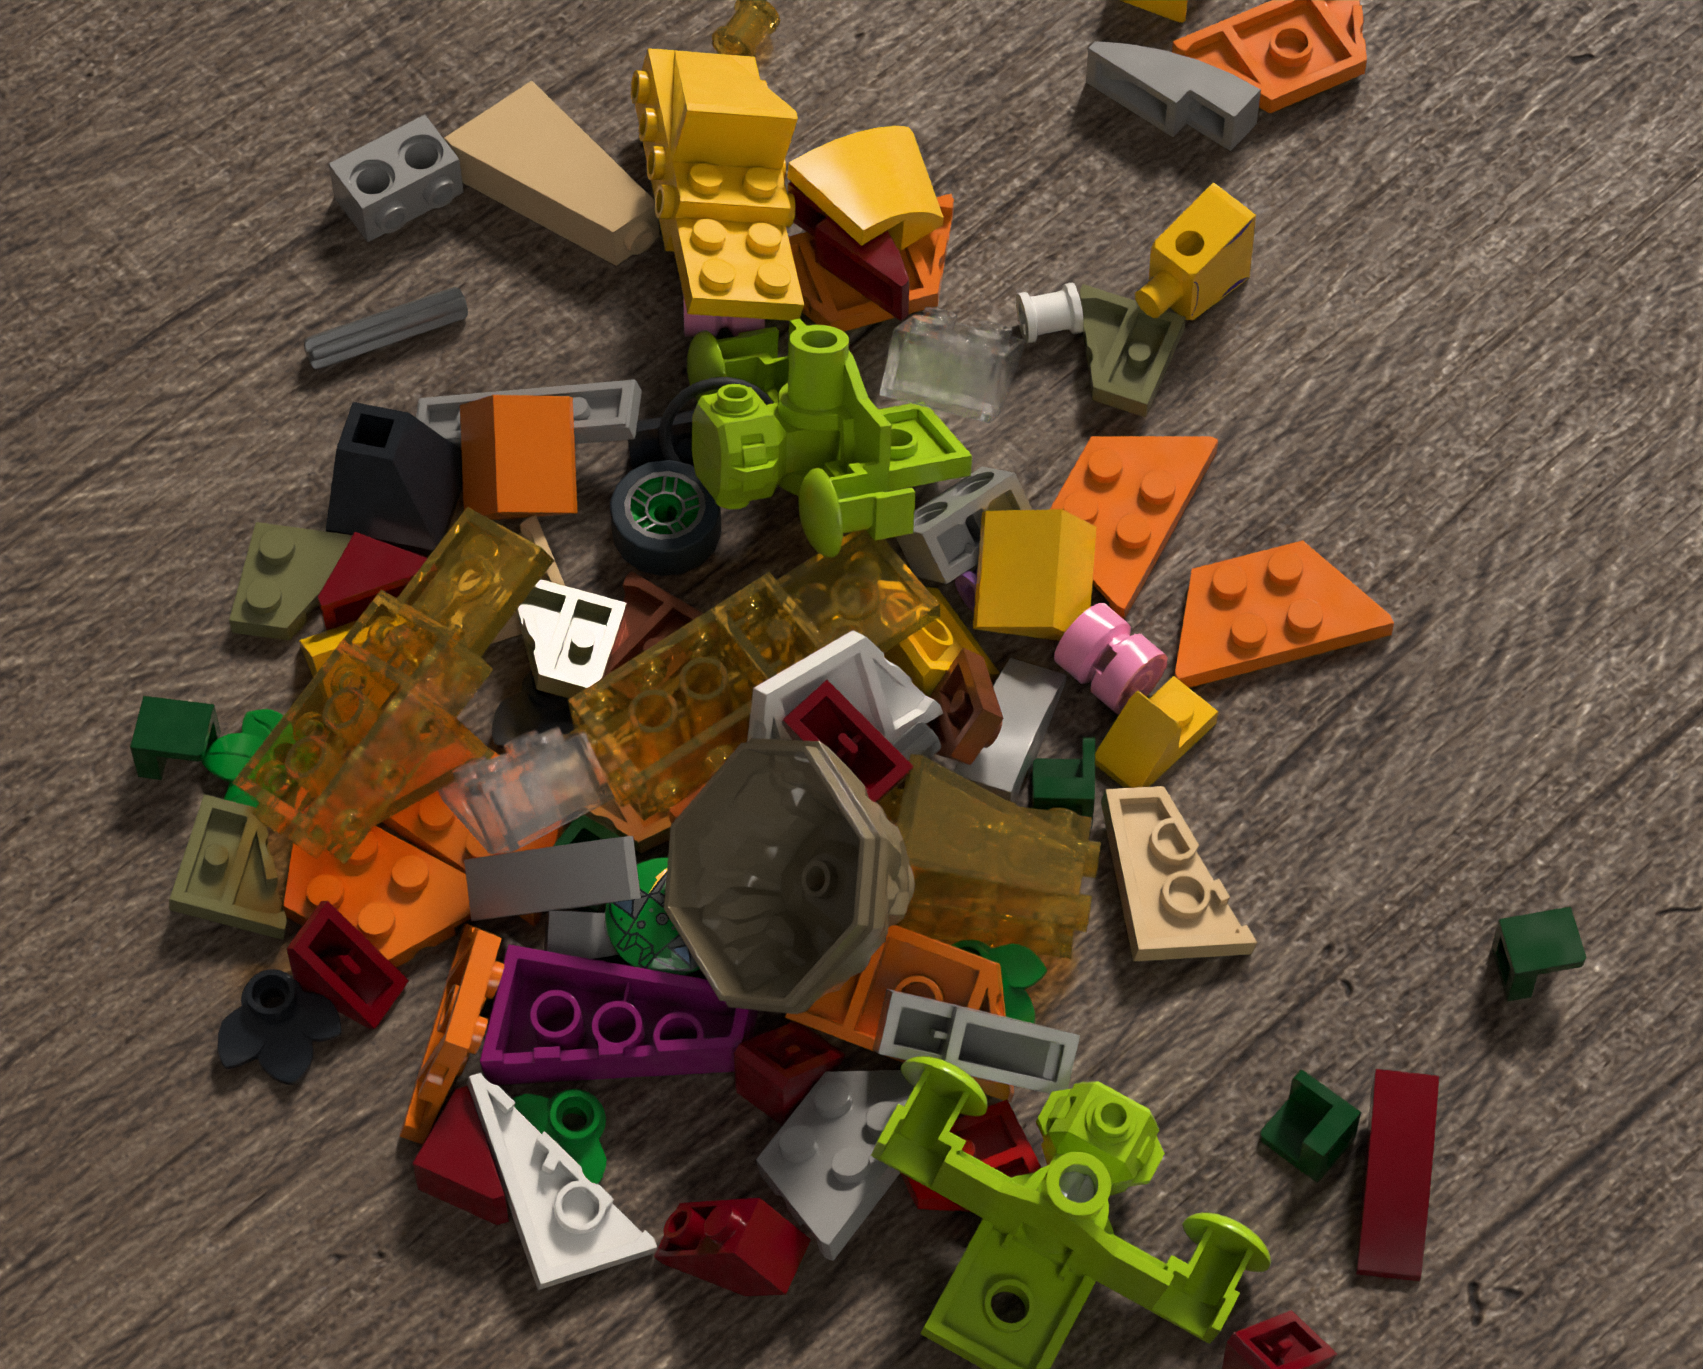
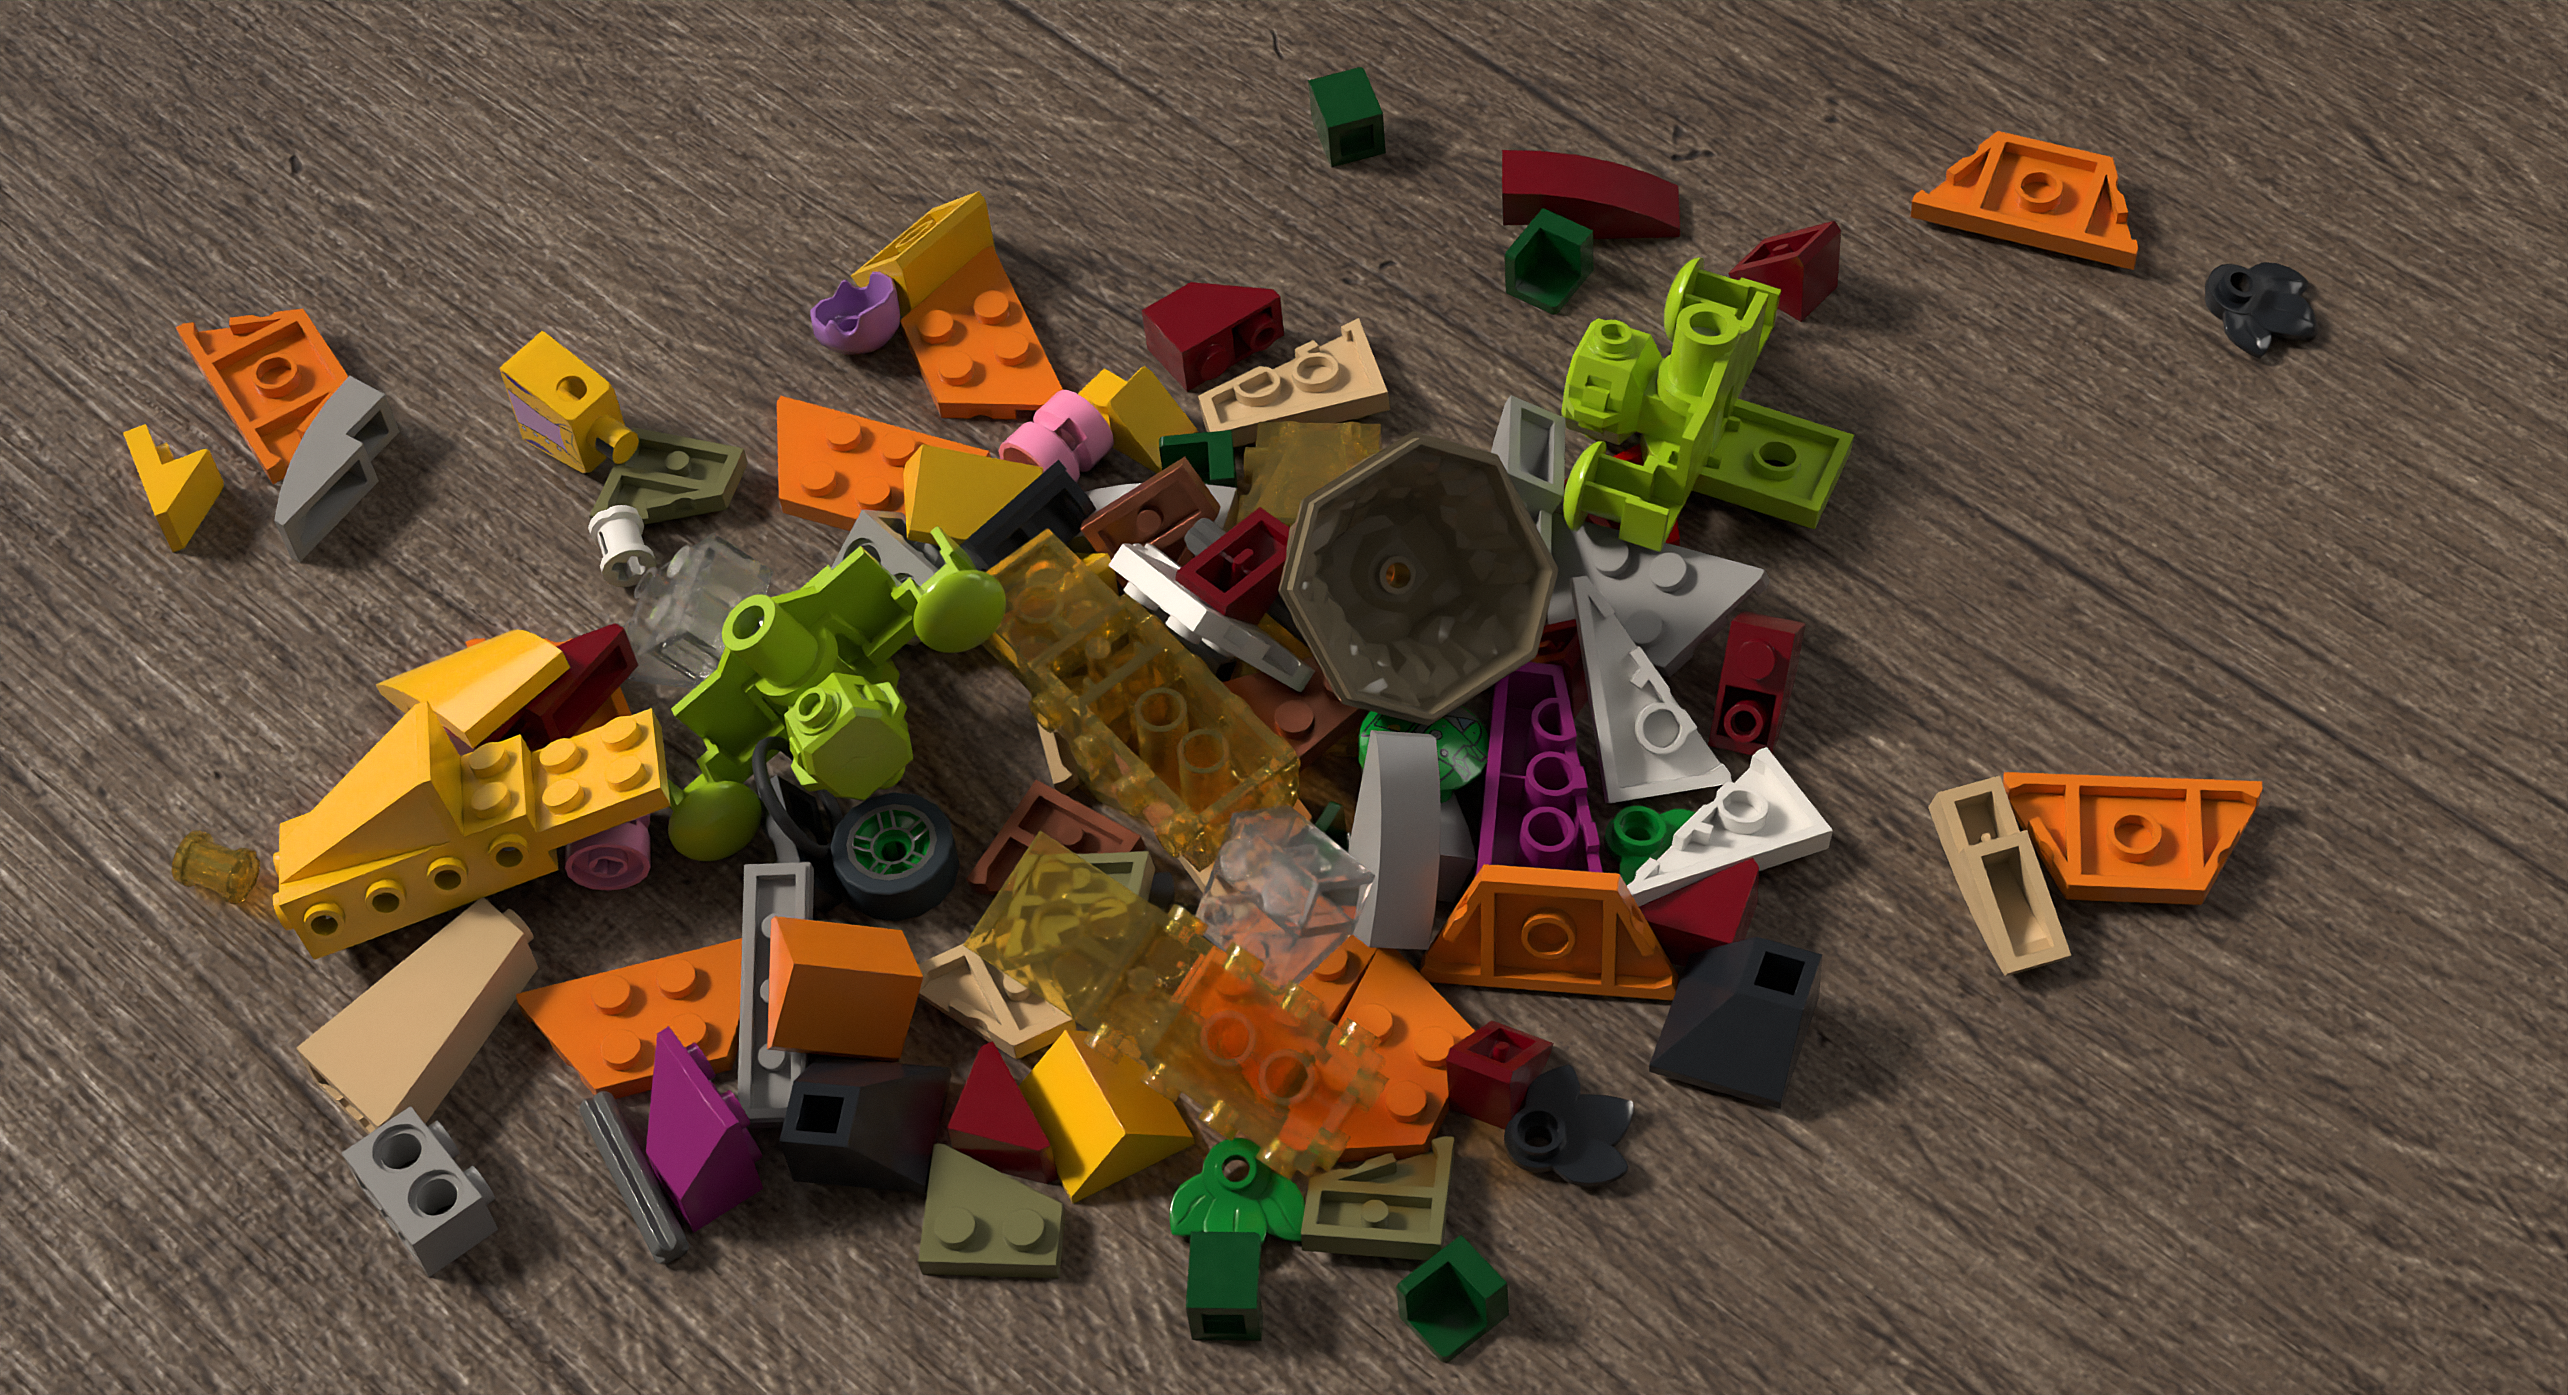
camera: 90 degrees left, 5 degrees down
(128, 916) = (1452, 1299): none -> dark green panel
(347, 1176) = (1740, 1019): none -> black slope
(400, 357) = (698, 1136): none -> magenta slope
(536, 326) = (612, 1018): none -> orange wing
(684, 1119) = (1639, 729): none -> white wing
(982, 610) = (1048, 502): none -> black hinge
(1250, 799) = (1210, 328): none -> dark red slope
(1304, 499) = (857, 317): none -> medium lavender hair
(1385, 562) = (932, 249): none -> yellow slope

